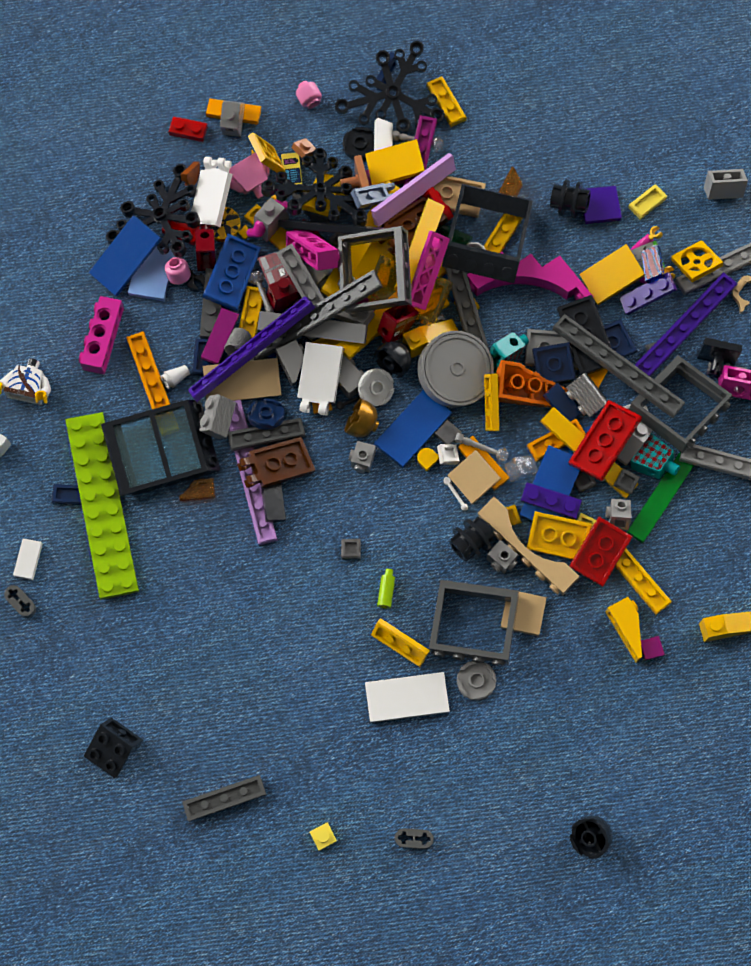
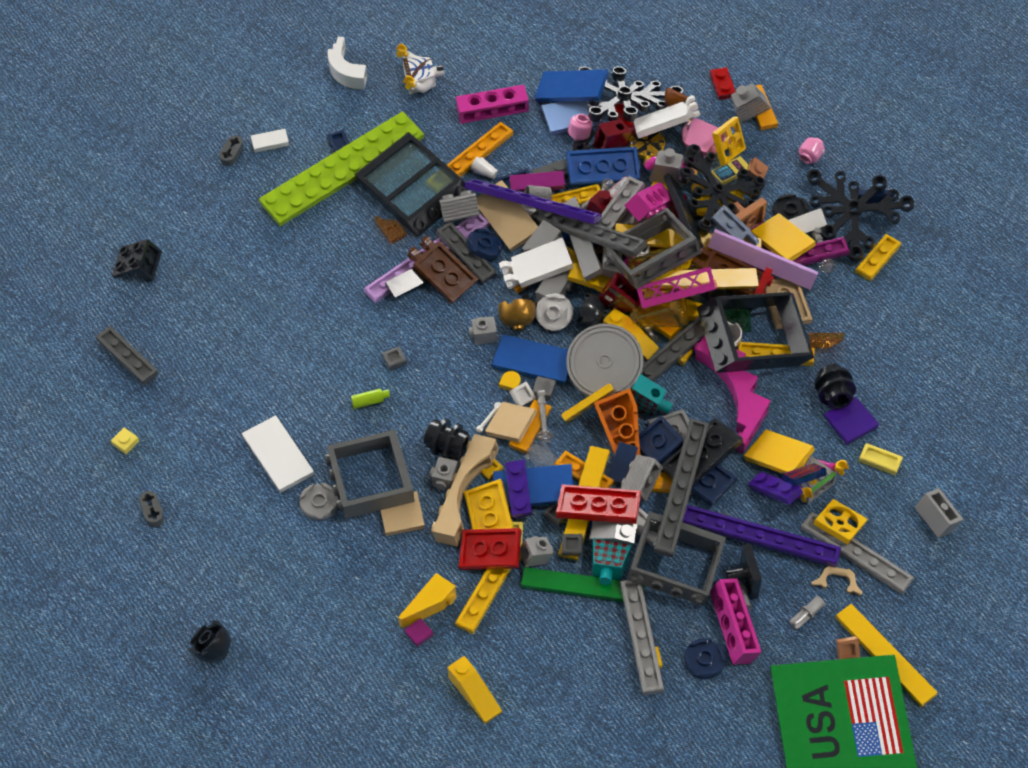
camera: 65 degrees right, 15 degrees down
(400, 642) = (324, 426): yellow tile -> none

